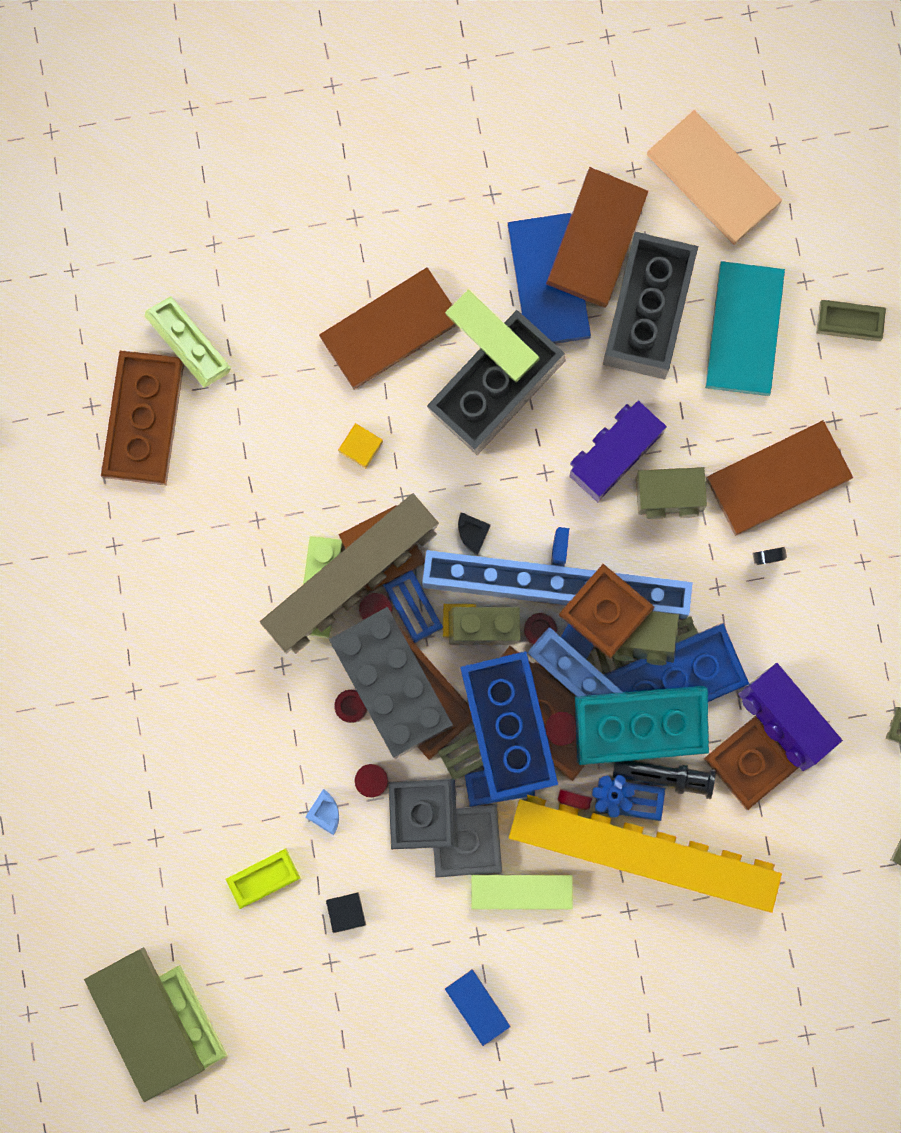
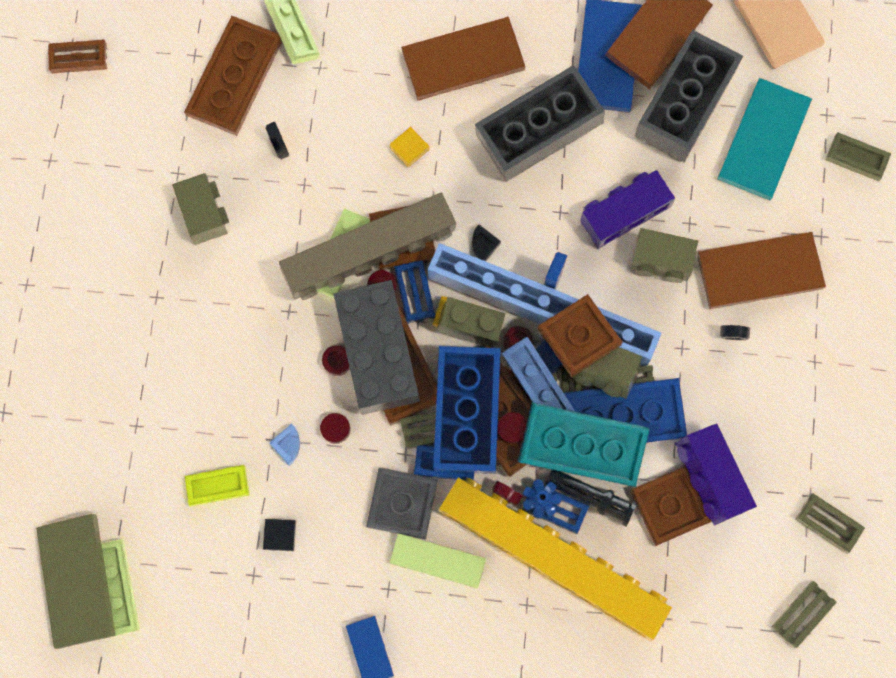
camera: 10 degrees right, 5 degrees down
(153, 581) = (200, 209): none -> olive brick
(213, 480) = (277, 140): none -> black tile
(423, 814) = (371, 468): dark grey tile -> none
(492, 335) = (547, 80): yellowish green tile -> none

